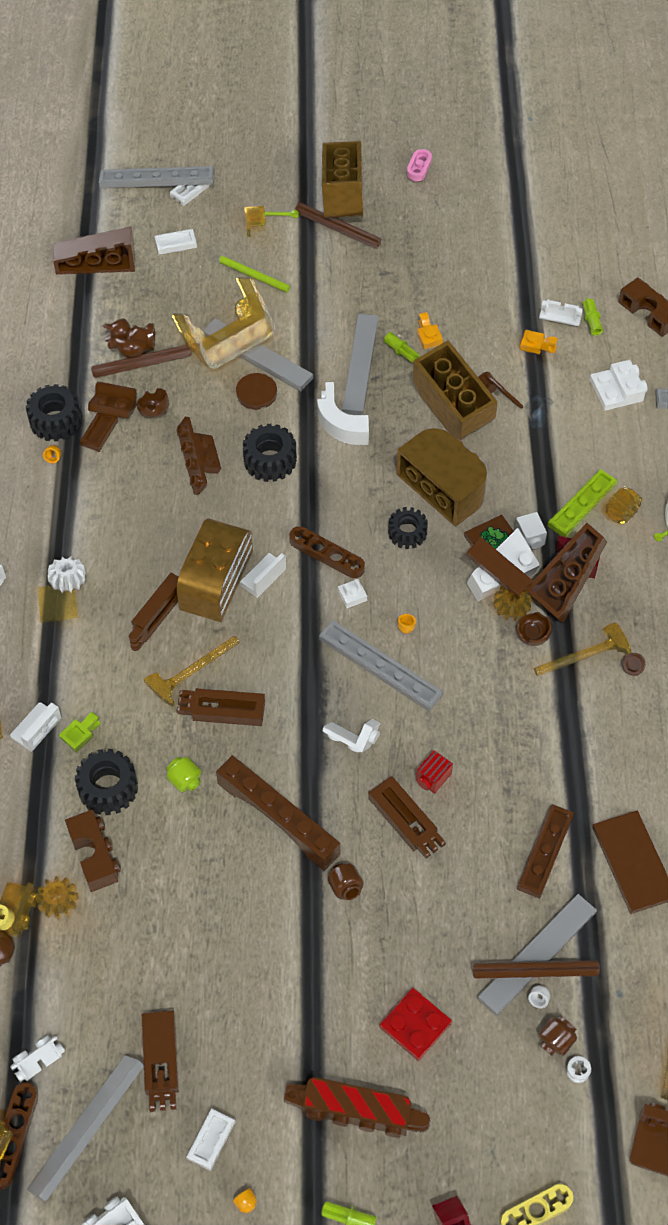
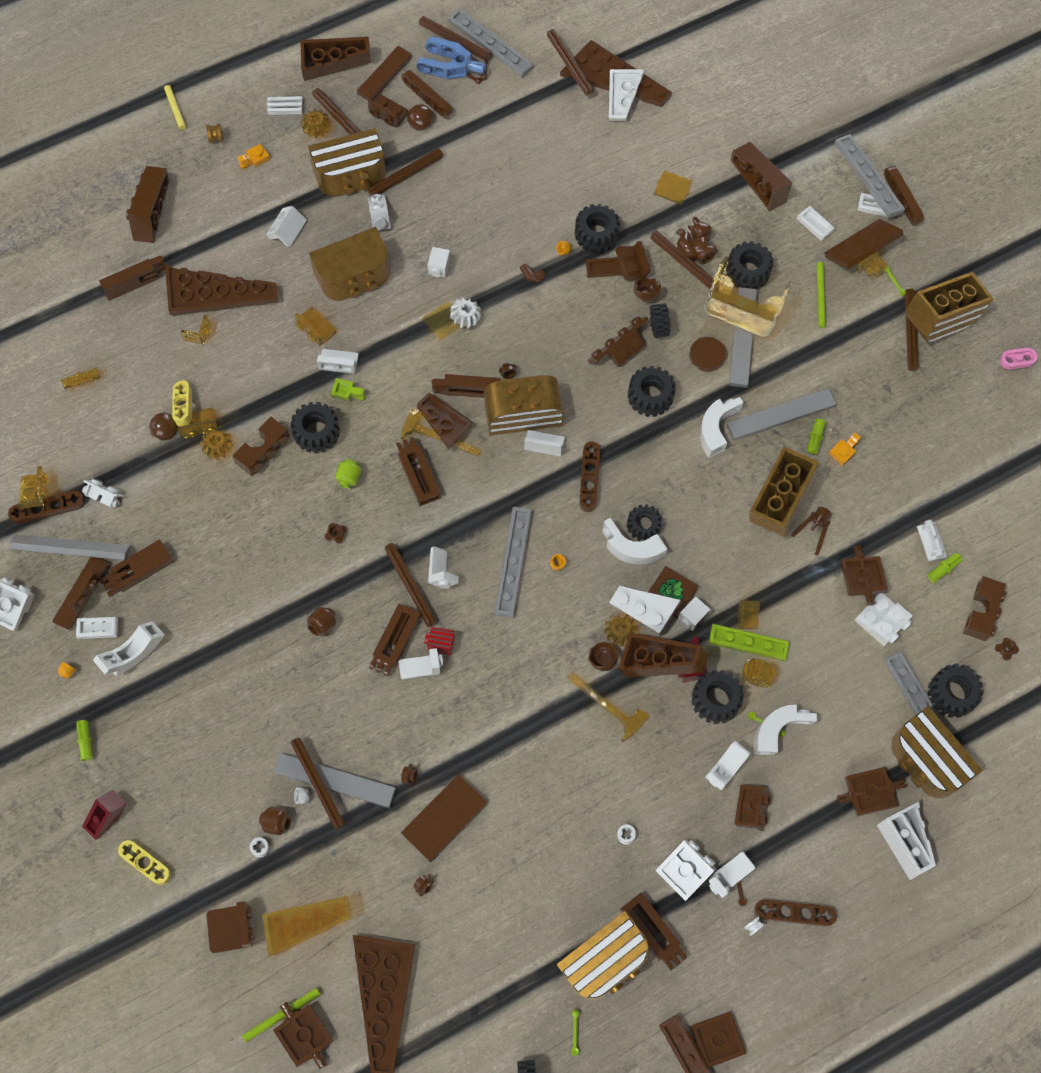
camera: 60 degrees right, 10 degrees up
(50, 333) = (672, 187): none -> clear yellow piece
(62, 498) = (537, 276): none -> reddish brown arm
(154, 1140) = (80, 593): none -> reddish brown bracket
(159, 568) = (508, 370): none -> reddish brown plate
(179, 652) = (443, 419): none -> reddish brown wing
(189, 298) = (752, 254): none -> black tyre
(196, 159) = (904, 195): none -> reddish brown beam
(198, 407) = (660, 320): none -> black tyre
(227, 214) = (863, 243): none -> reddish brown tile
(245, 814) = (335, 528): none -> reddish brown plate
(265, 1106) = (133, 651): none -> white arch
(308, 835) = (345, 564): reddish brown arch -> none
(342, 774) = (410, 585): none -> reddish brown axle
(352, 593) = (564, 512): white tile -> none
(357, 1106) = (161, 709): reddish brown hinge -> none
(415, 1024) = (240, 720): red plate -> none
(428, 556) = (630, 551): none -> white arch
(443, 473) = (705, 524): pearl gold brick -> none
(452, 802) = (421, 666): none -> white bracket
(499, 567) = (633, 602): reddish brown tile -> none
(536, 341) = (889, 534): light orange plate -> none
(545, 851) = (420, 750): reddish brown tile -> none
(554, 490) = (748, 614): none -> clear yellow panel
(567, 378) = (864, 575): none -> reddish brown plate
(571, 872) = (409, 775): none -> reddish brown plate
(633, 664) = (615, 745): reddish brown plate -> none
(634, 537) = (725, 683): none -> black tyre

